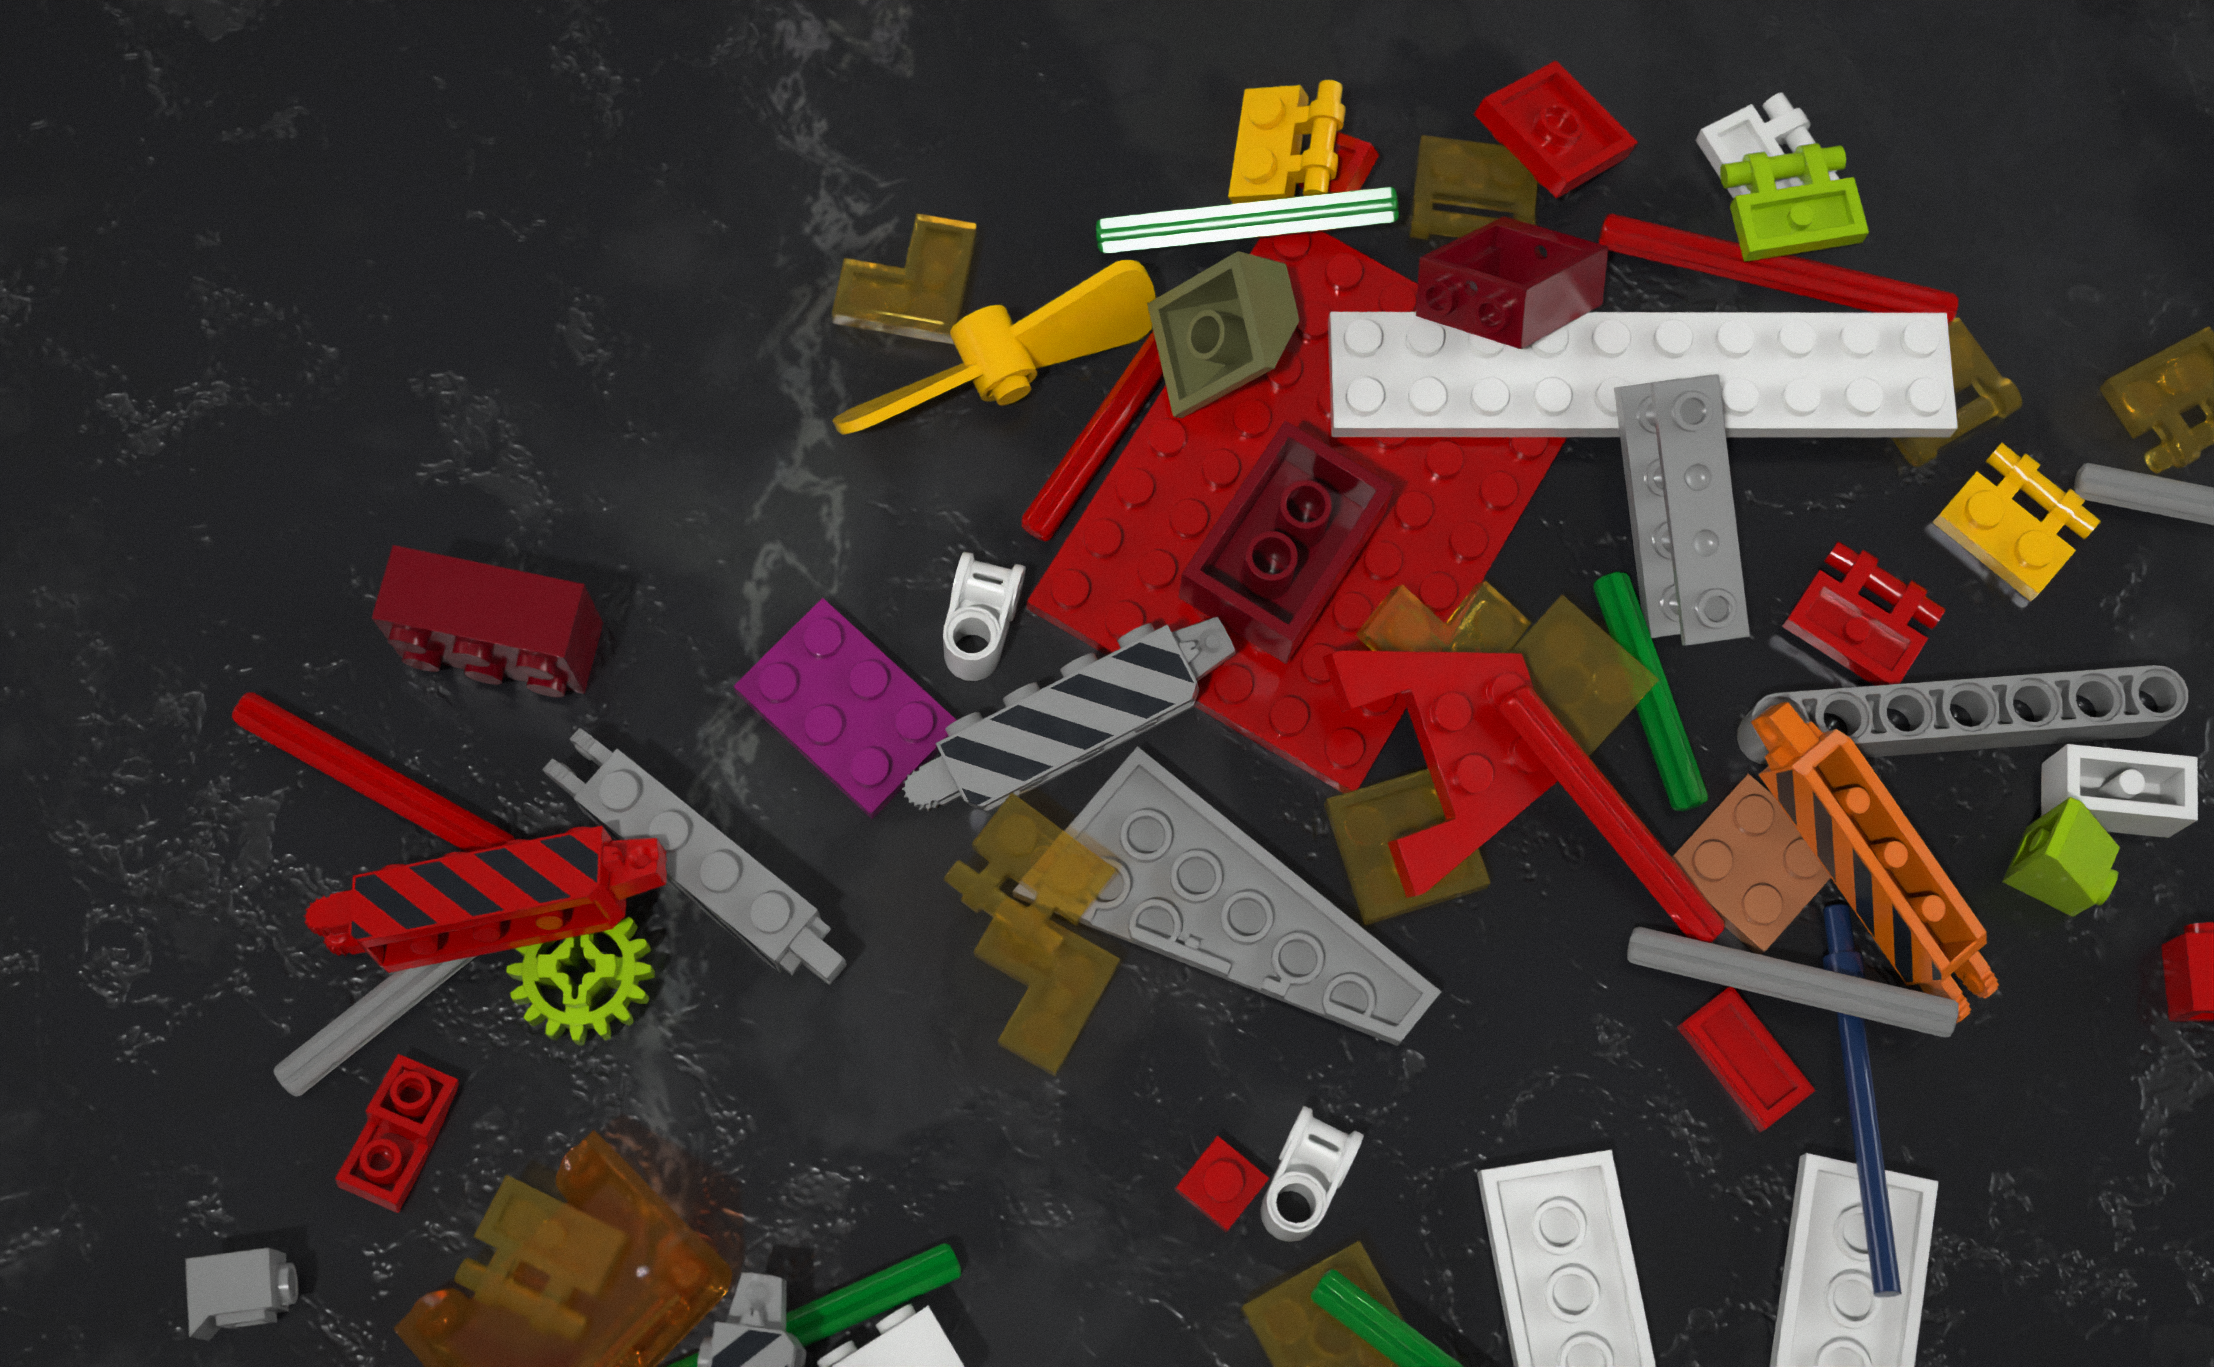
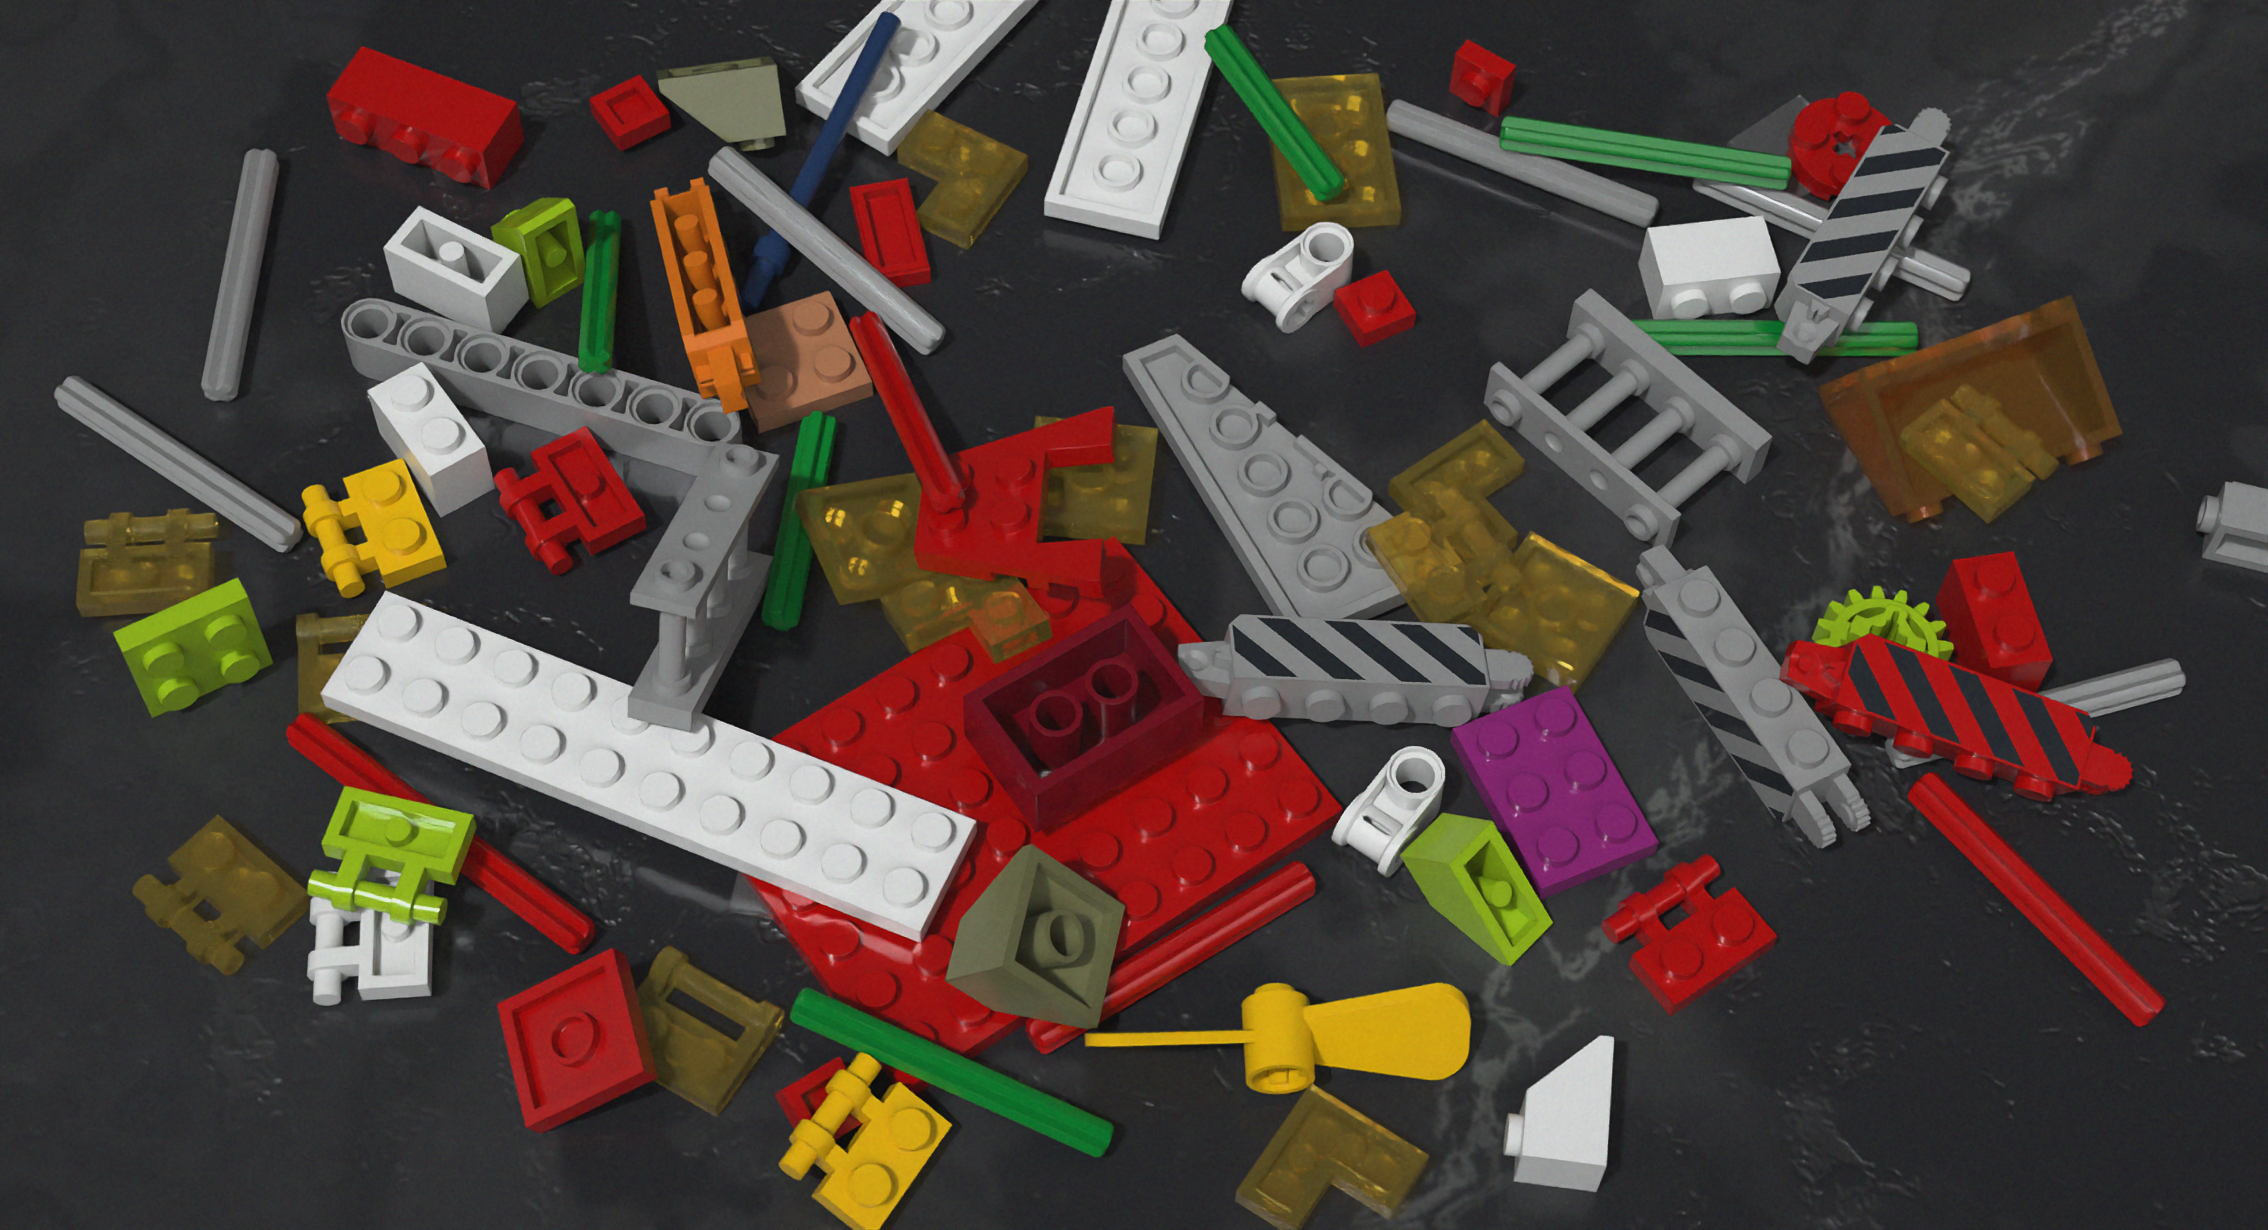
camera: 155 degrees left, 15 degrees down
(398, 1134) = (2085, 596): red slope -> none
(476, 1040) = (1994, 620): none -> red brick
(488, 621) = (1887, 961): dark red brick -> none
(663, 608) = (1698, 951): none -> red plate
(730, 390) = (1565, 1122): none -> white slope
(882, 570) = (1477, 885): none -> lime slope
(898, 889) = (1560, 615): none -> clear yellow plate
(922, 1204) = (1661, 380): none -> light grey fence
(1504, 287) = (678, 897): dark red window -> none
(1699, 1175) = (971, 173): none -> clear yellow plate
(1909, 166) = (235, 880): none -> clear yellow plate
(1974, 832) = (600, 292): none -> green axle
(2005, 1140) = (731, 99): none -> olive slope
(2024, 612) = (432, 438): none -> white brick
(2074, 305) = (194, 648): none -> lime plate
(2083, 1081) = (630, 113): none -> red plate

